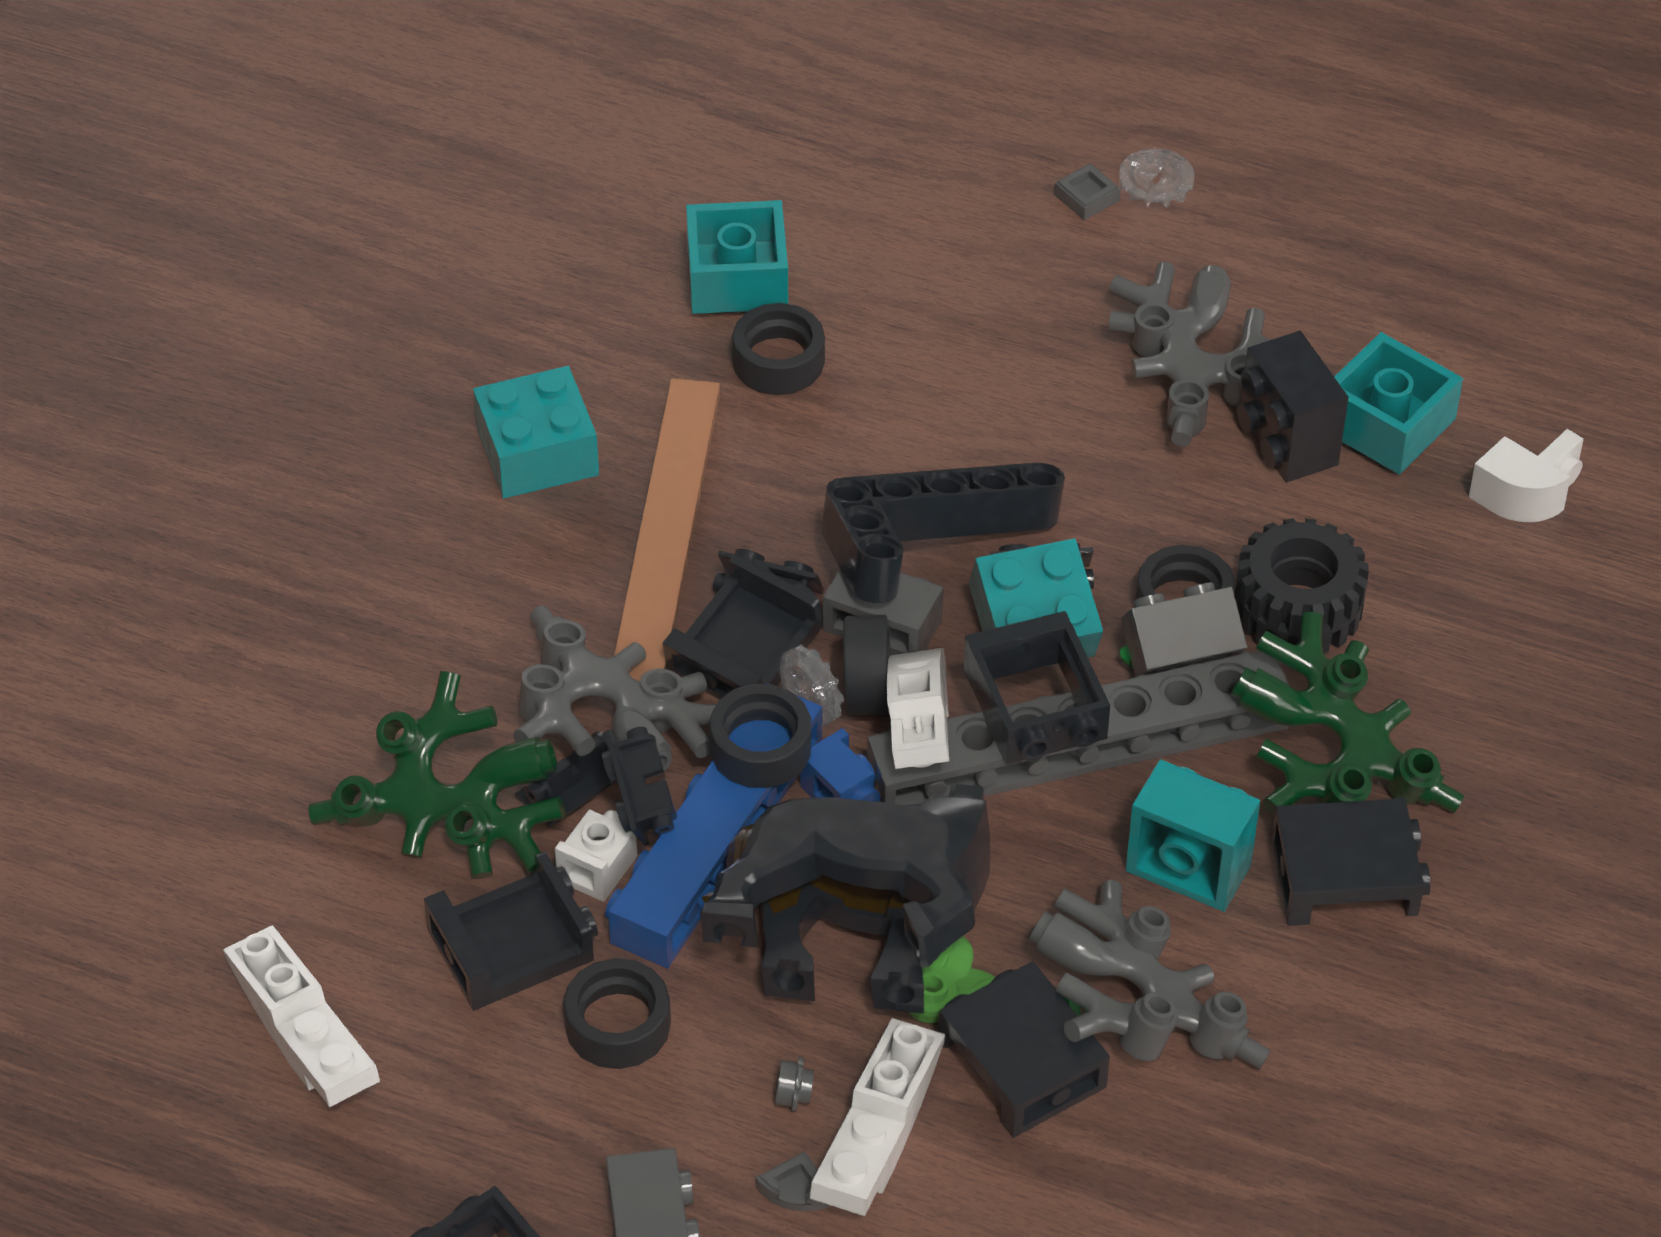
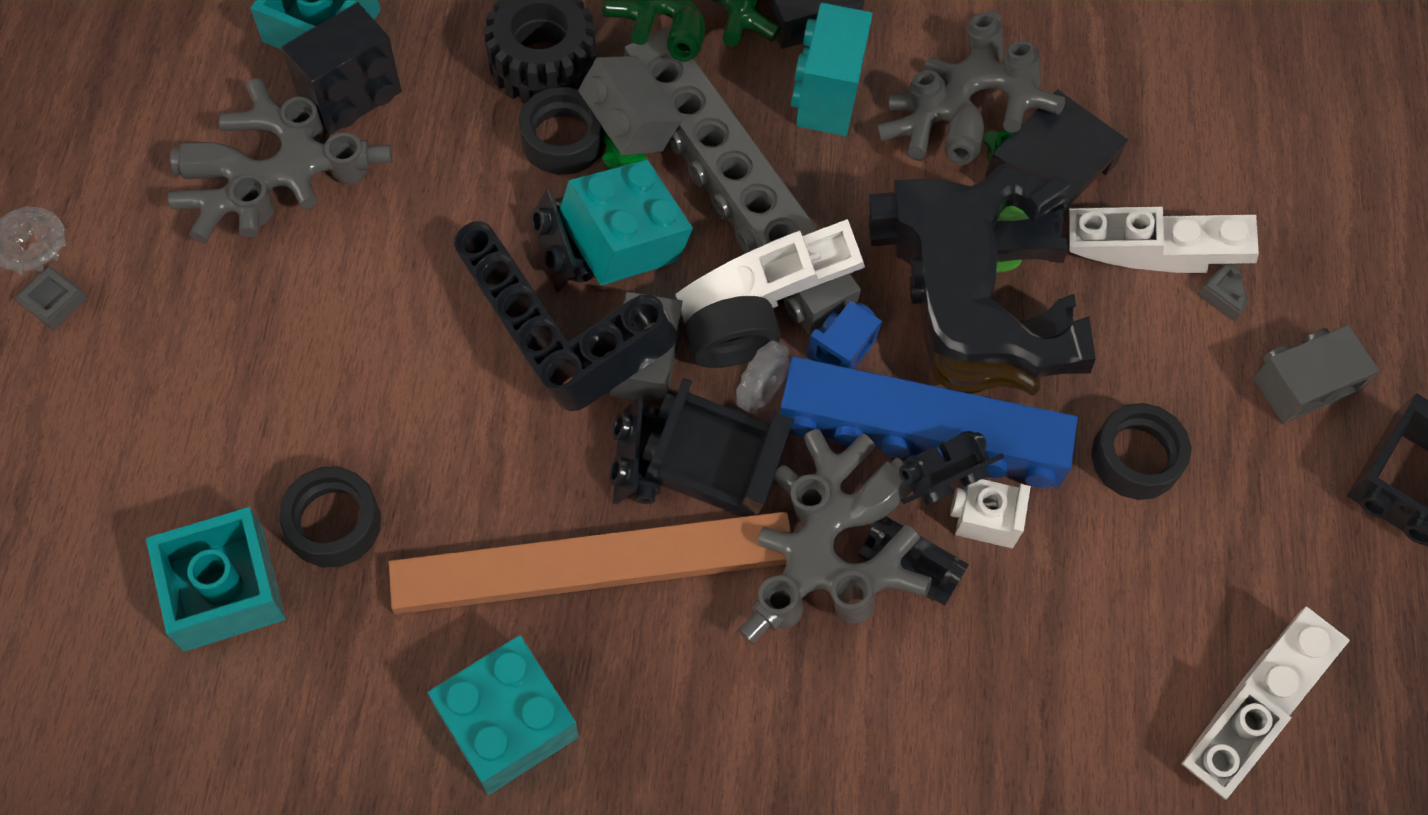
camera: 110 degrees left, 15 degrees up
(424, 800) = (994, 683): dark green plant -> none
(512, 934) = (1094, 560): black panel -> none
(760, 768) = (865, 350): black tyre -> none
(793, 1084) = (1149, 308): dark grey plate -> none
(1045, 643) = (754, 136): black window -> none

